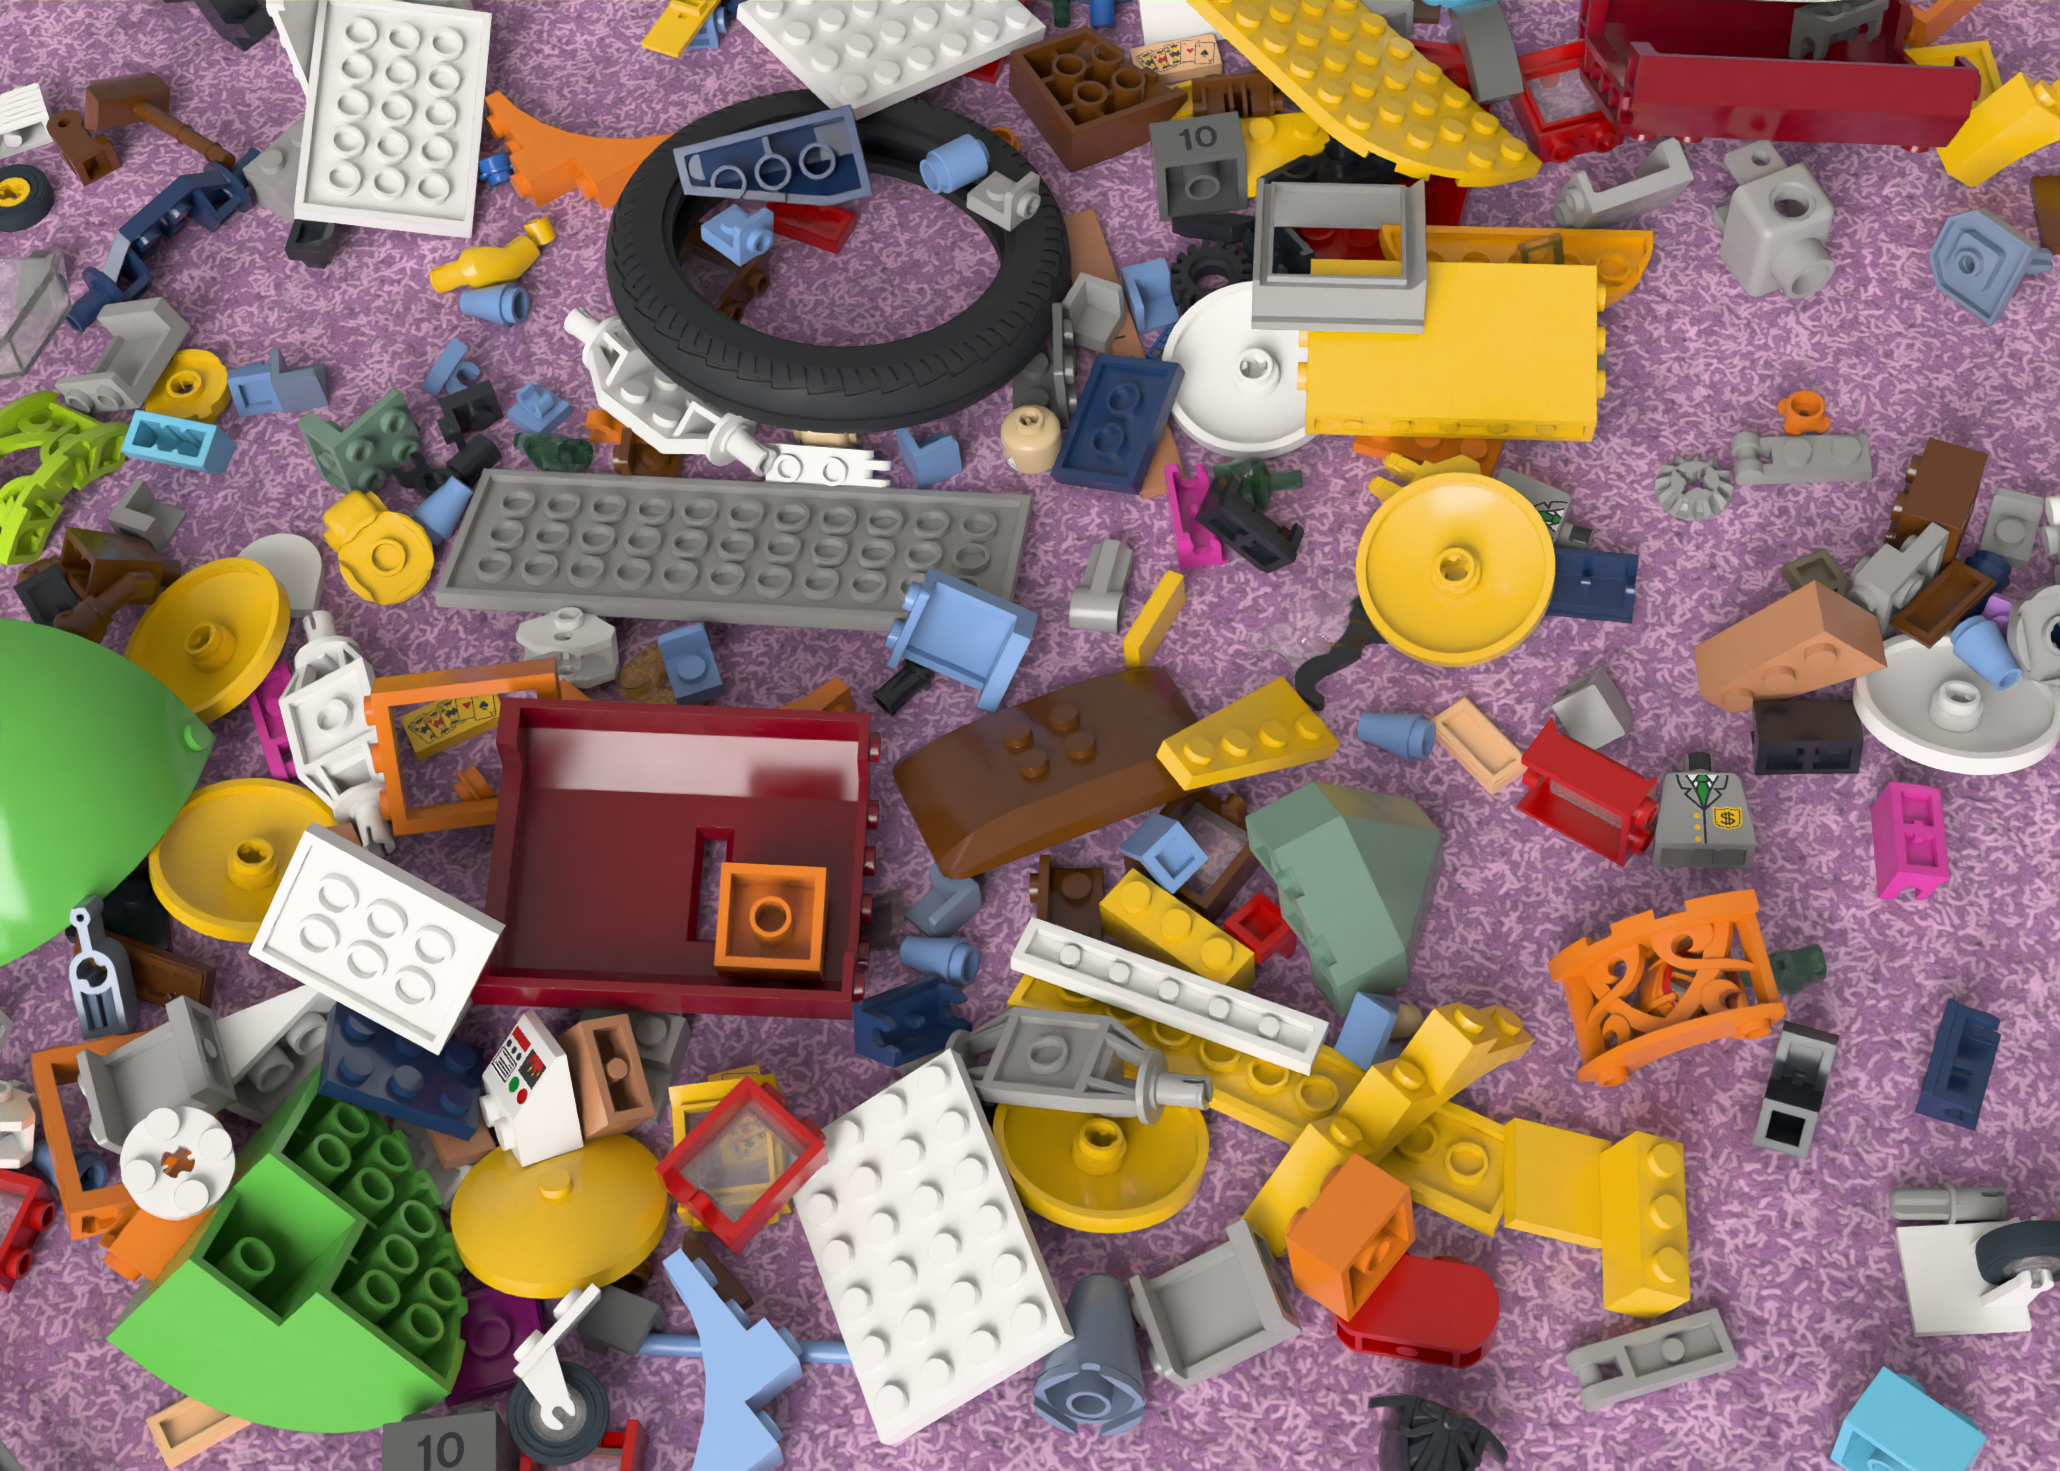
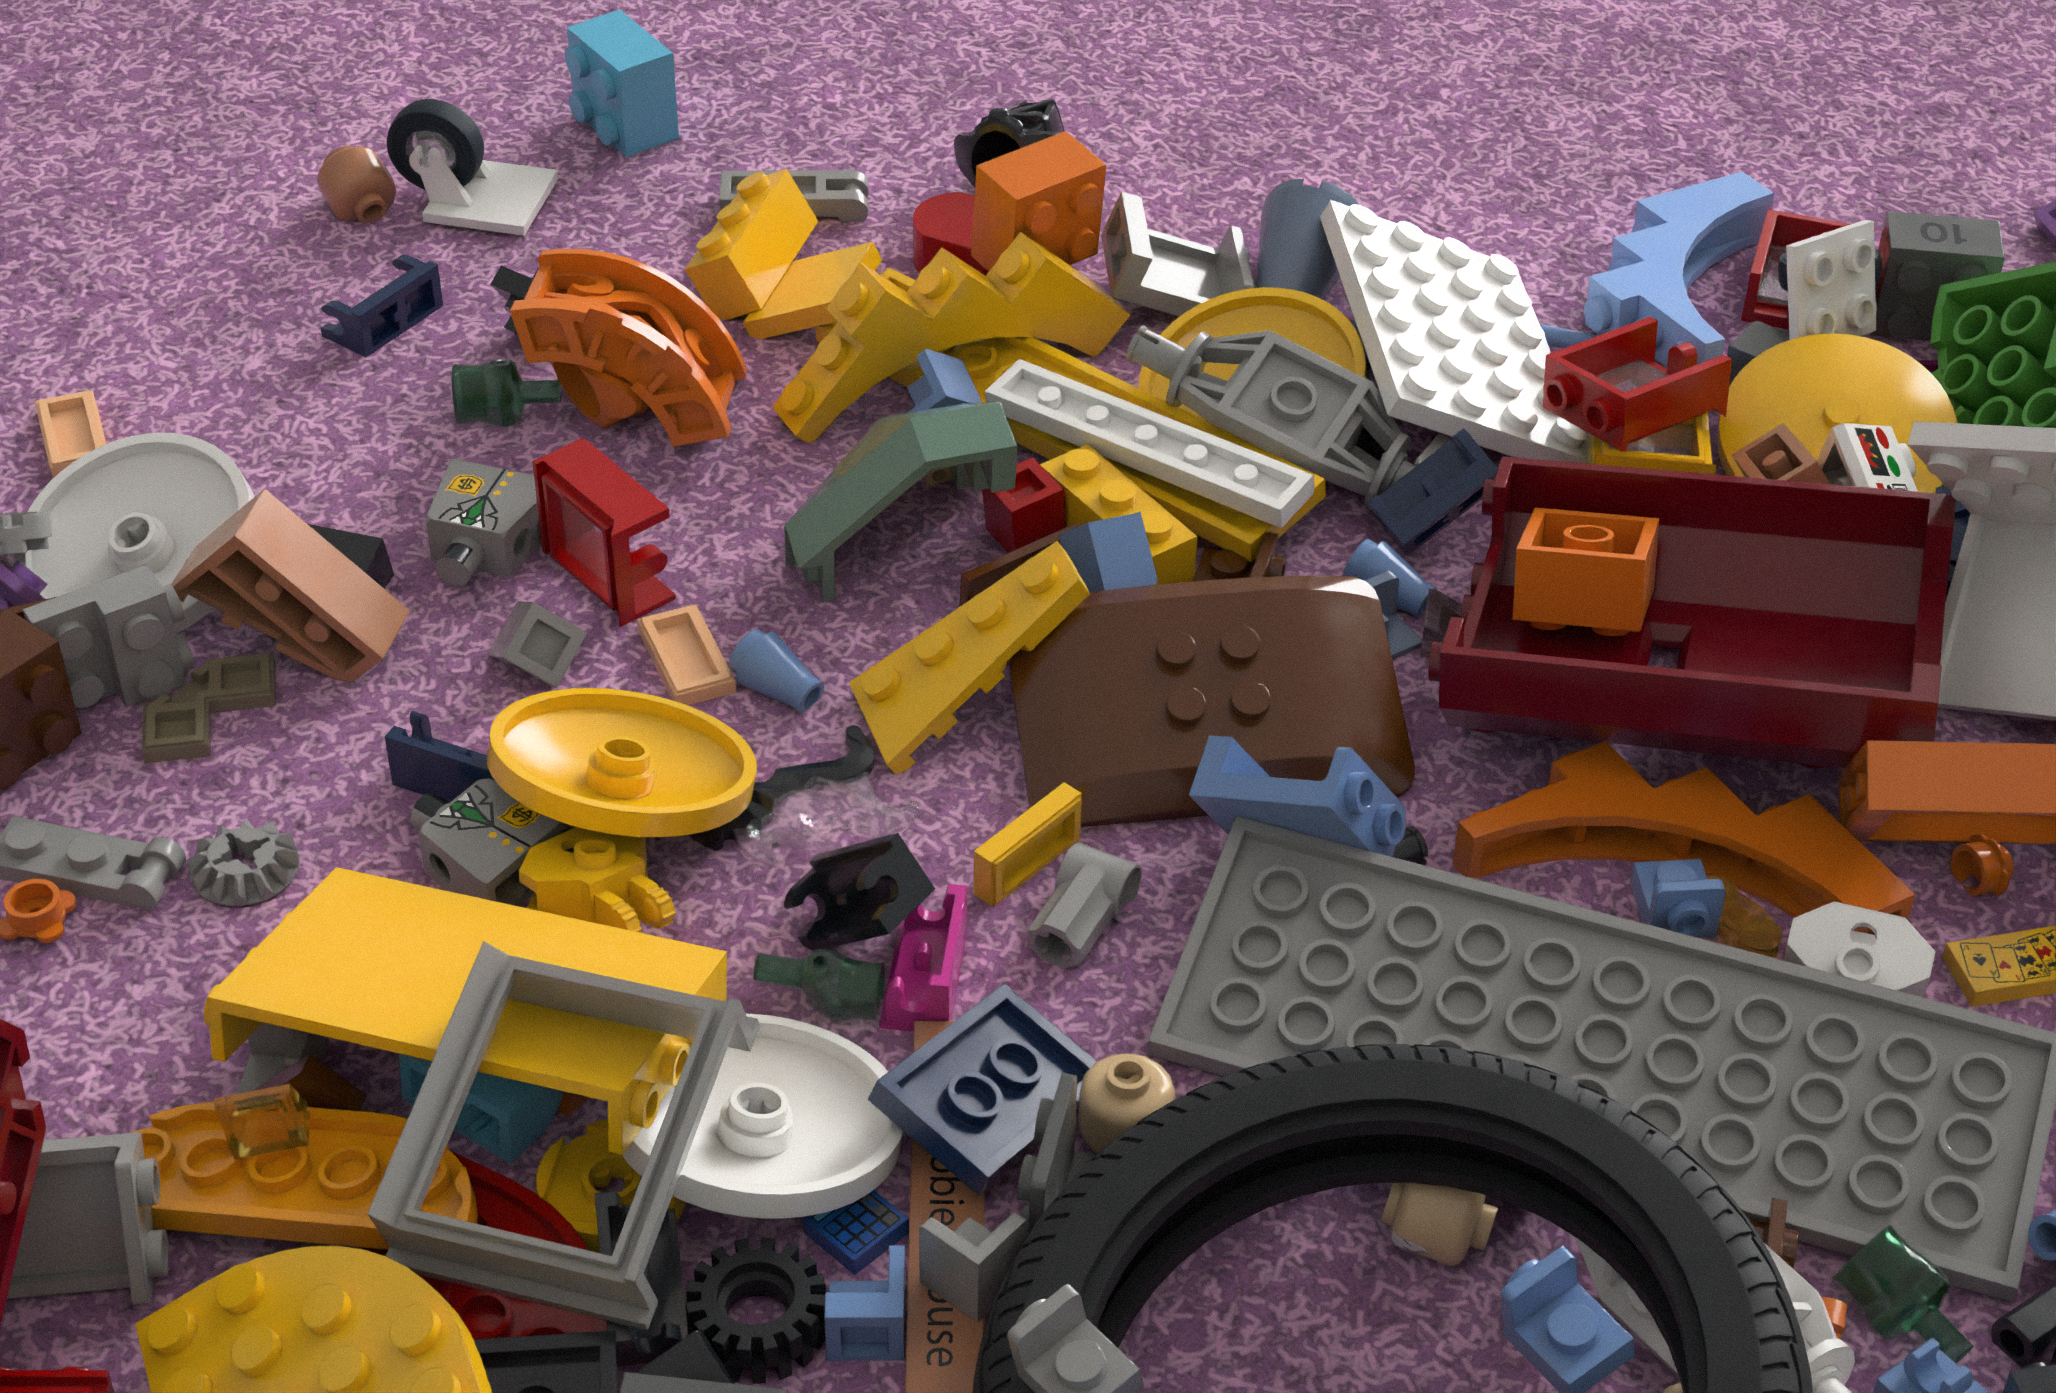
camera: 175 degrees left, 15 degrees down
(1909, 840) = (293, 452): dark pink hinge -> none
(1949, 1203) = (465, 231): light grey axle -> none
(1985, 651) = (71, 553): medium blue cone -> none

